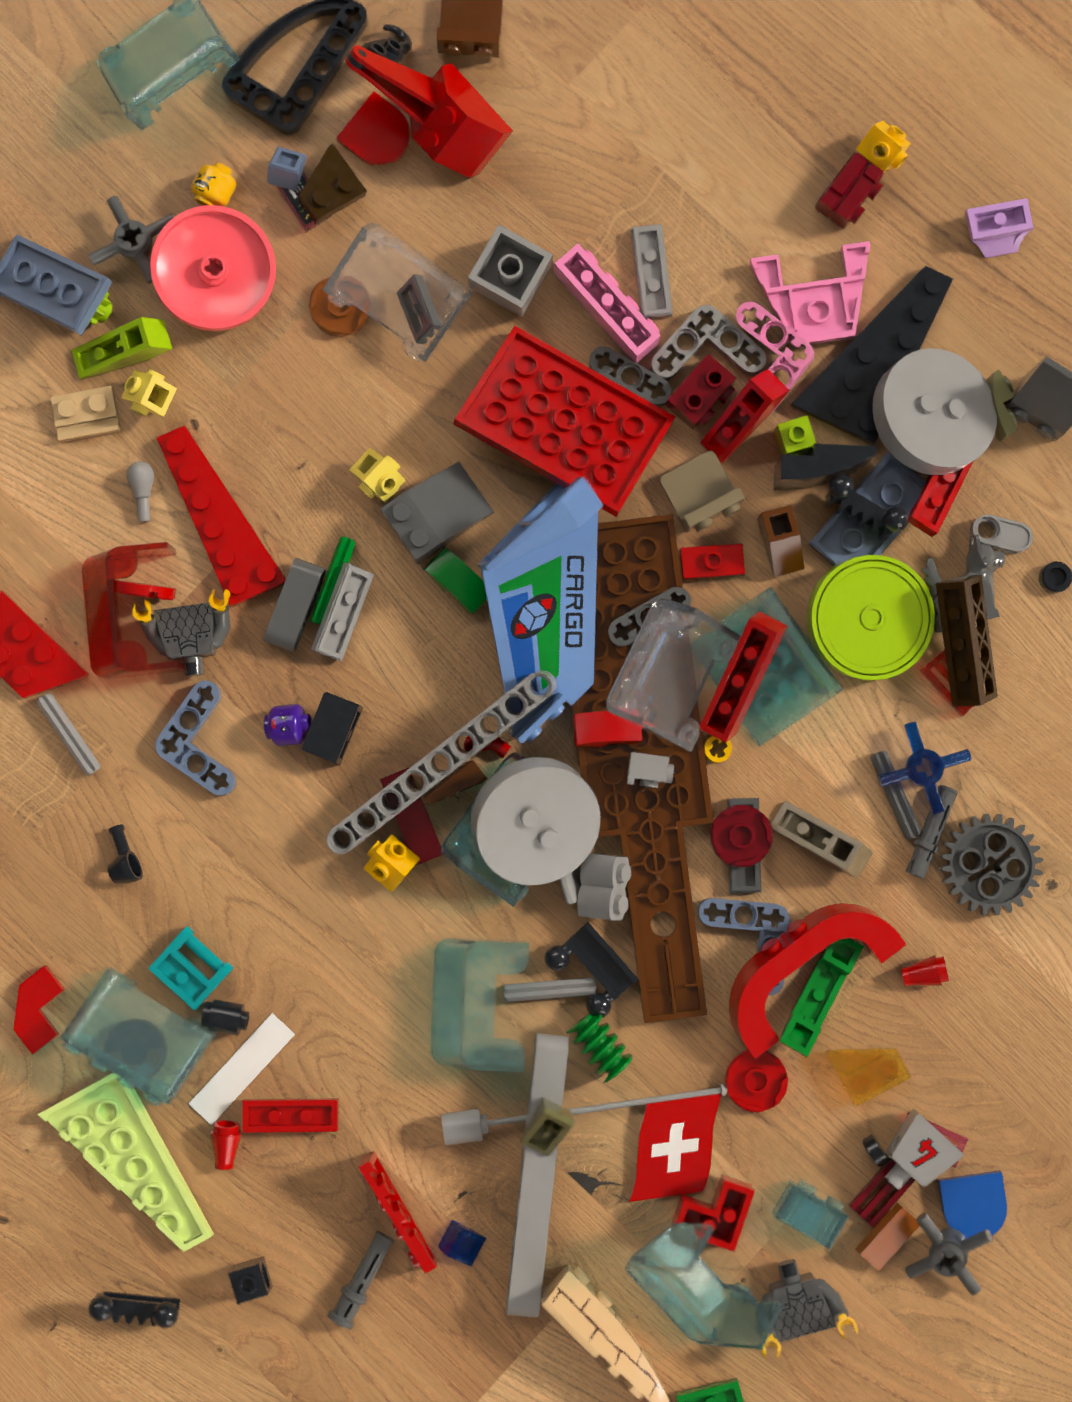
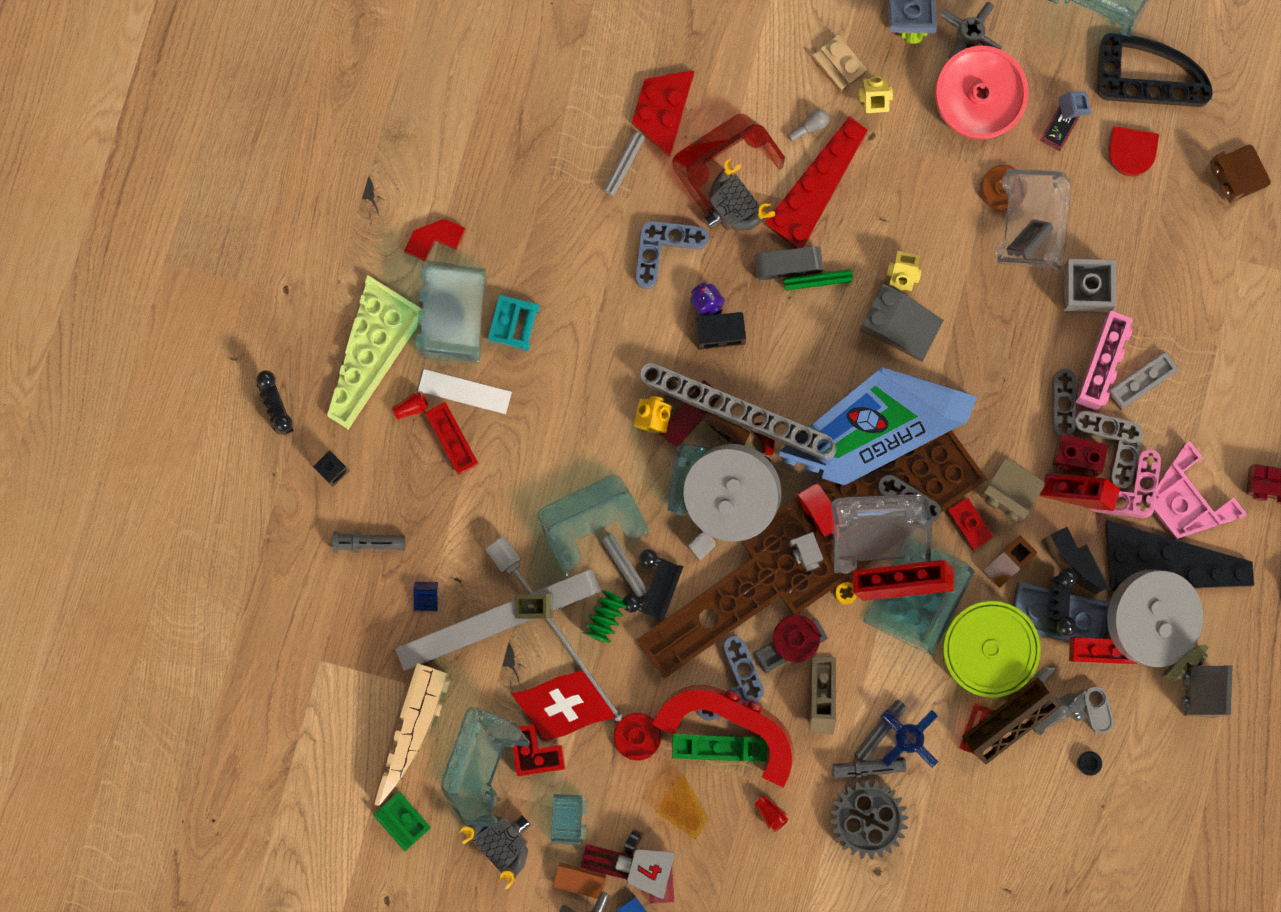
camera: 65 degrees right, 5 degrees down
(122, 347) = (896, 63): lime slope -> none
(126, 866) = (558, 246): black bar -> none
(144, 590) = (745, 160): red tile -> none
(213, 185) = (1036, 64): yellow head -> none
(225, 1017) = (493, 361): black brick -> none
(330, 187) = (1078, 139): dark brown wing -> none
(342, 612) = (801, 296): light grey tile -> none
(392, 1203) = (428, 536): red wing -> none
(444, 111) = (1171, 187): red slope -> none
(457, 579) = (864, 359): green slope -> none
(564, 419) = (1010, 373): red plate -> none
(603, 887) = (712, 563): light grey brick -> none
(794, 436) = (1085, 532): lime brick -> none

